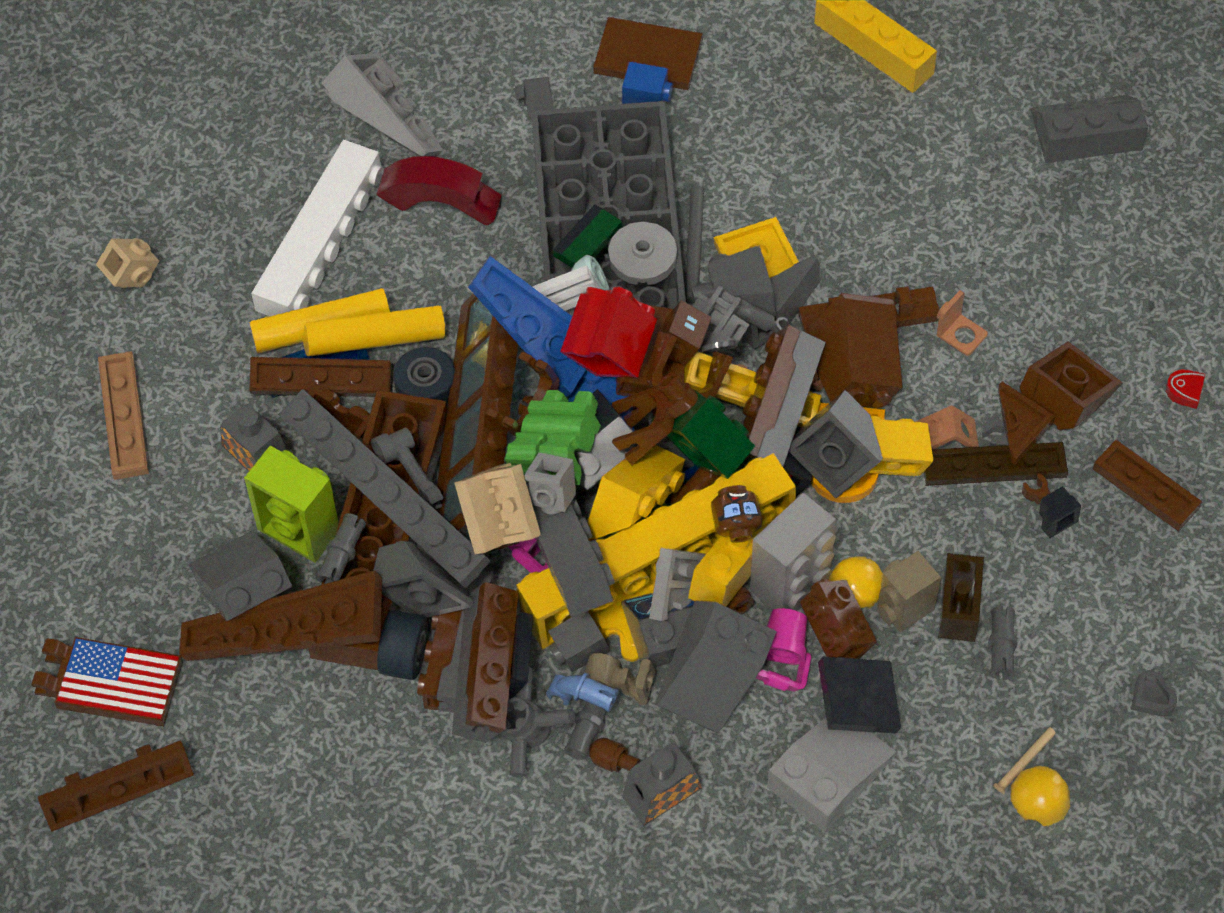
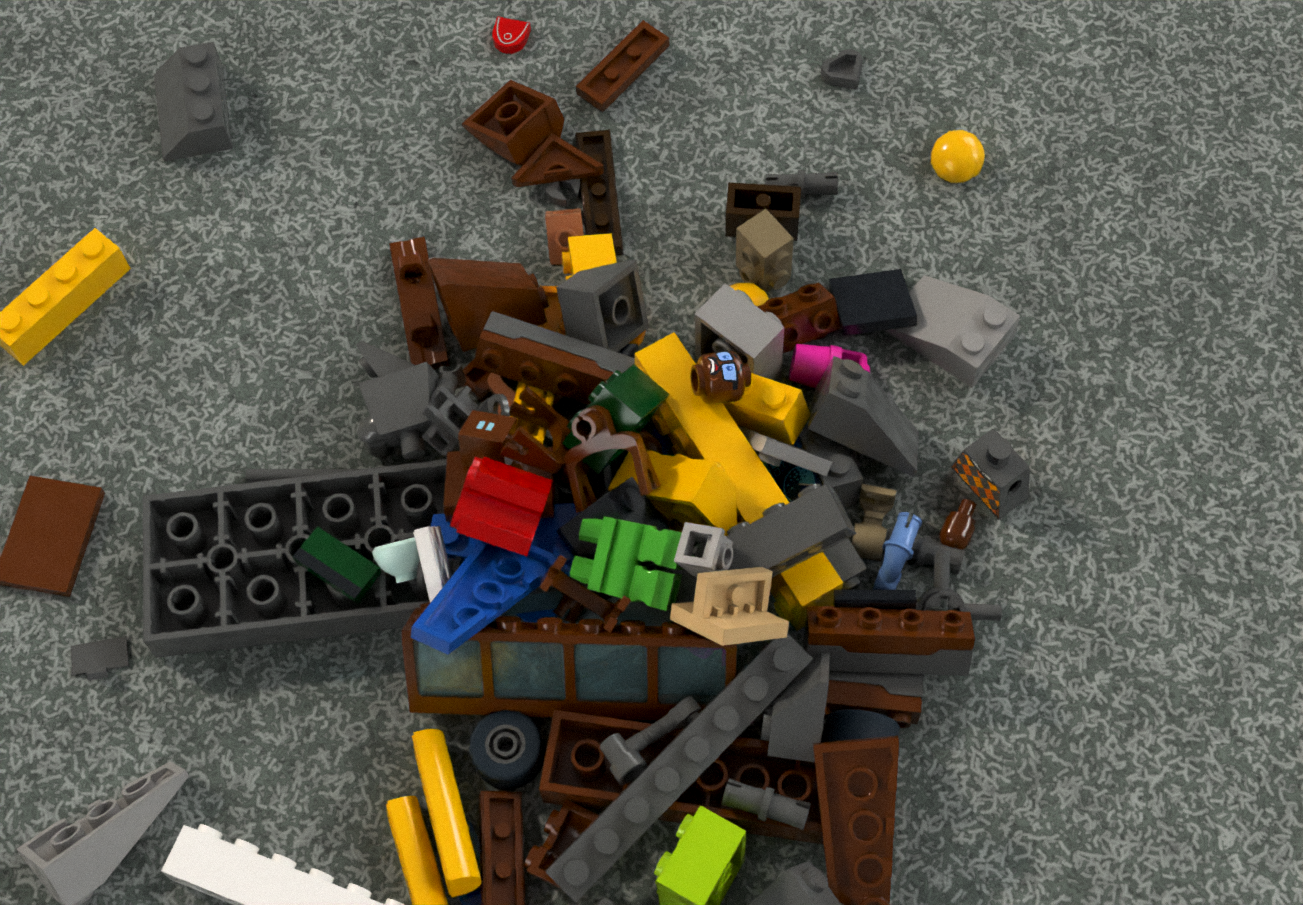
camera: 90 degrees left, 5 degrees up
(438, 180) = (234, 755): dark red arch -> none
(642, 266) = (362, 522): light grey plate -> none
(646, 84) = (104, 530): blue brick -> none
(769, 236) = (333, 411): yellow tile -> none
(951, 320) = (431, 224): nougat bracket -> none
(1024, 760) = (916, 168): tan piece -> none
(1056, 508) = (653, 137): black piece -> none

